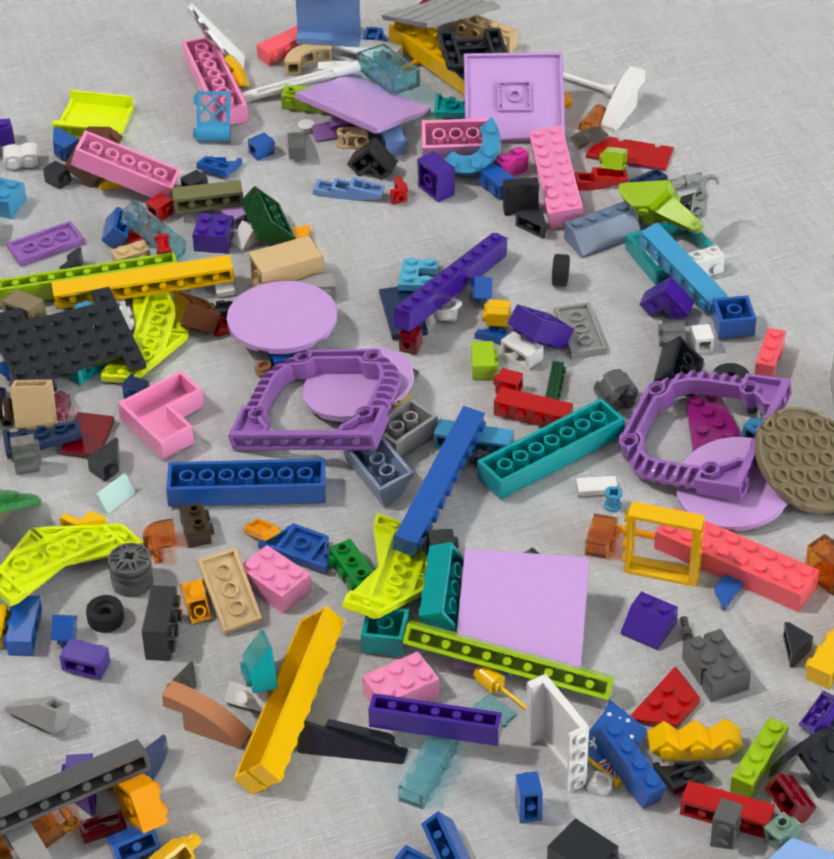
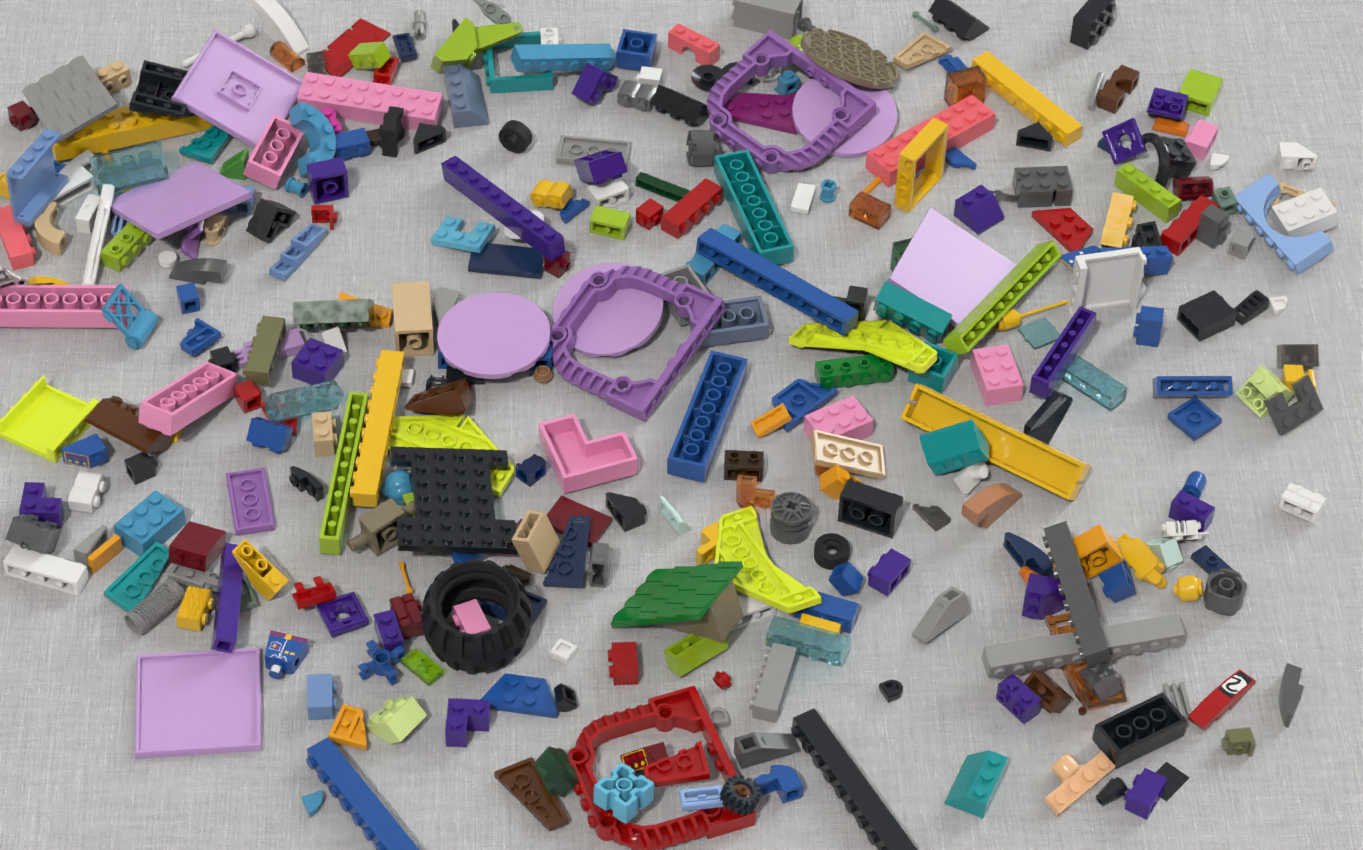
camera: 75 degrees left, 5 degrees up
(162, 243) = (338, 395): red bush -> none
(480, 289) = (516, 191): blue brick -> none

